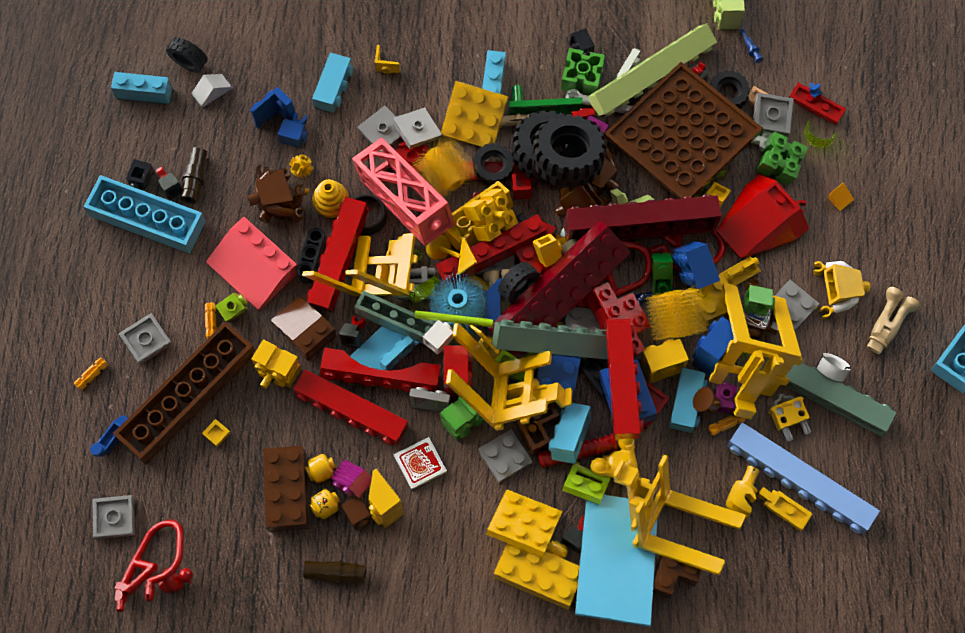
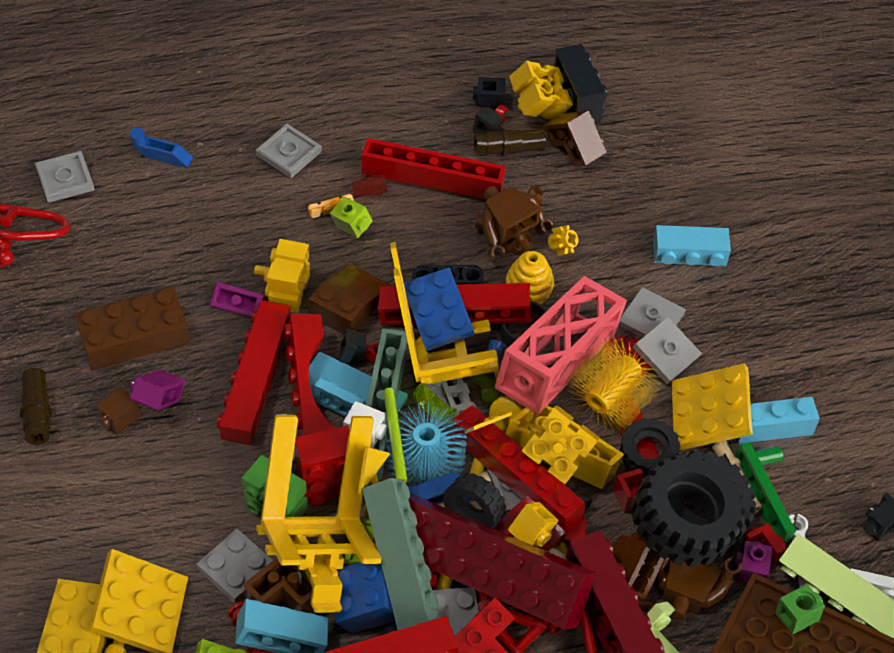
camera: 70 degrees right, 15 degrees down
(90, 374) = (232, 114): light orange axle -> none
(141, 87) = (603, 60): medium azure brick -> none
(145, 214) = (441, 100): medium azure brick -> none
(158, 137) = (540, 90): none -> yellow brick
(160, 109) = (581, 81): none -> black brick
(184, 393) = (227, 197): reddish brown brick -> none
(186, 54) = (658, 91): black tyre -> none
(202, 286) = (370, 186): none -> clear red cone
(206, 237) = (431, 168): none -> red brick
(207, 125) = (578, 136): none -> brick
(210, 88) = (631, 131): white slope -> none
(216, 433) = (189, 245): yellow plate -> none
(252, 264) = (419, 223): coral slope -> none
(273, 102) = (626, 186): blue bracket -> none
(278, 408) = (236, 299): none -> magenta slope
(293, 132) = (606, 222): blue brick -> none
(320, 468) = (167, 356): yellow head -> none
(324, 504) = (119, 371): yellow head -> none
(335, 260) = (438, 309): none -> blue plate
(379, 240) = (496, 345): none -> blue hand
(384, 502) = (131, 423): yellow slope -> none
(385, 66) = (739, 292): yellow bracket -> none
(420, 463) = (202, 468): tile -> none
(582, 71) = (838, 524): bright green brick -> none
(643, 120) = (796, 618): none -> bright green brick

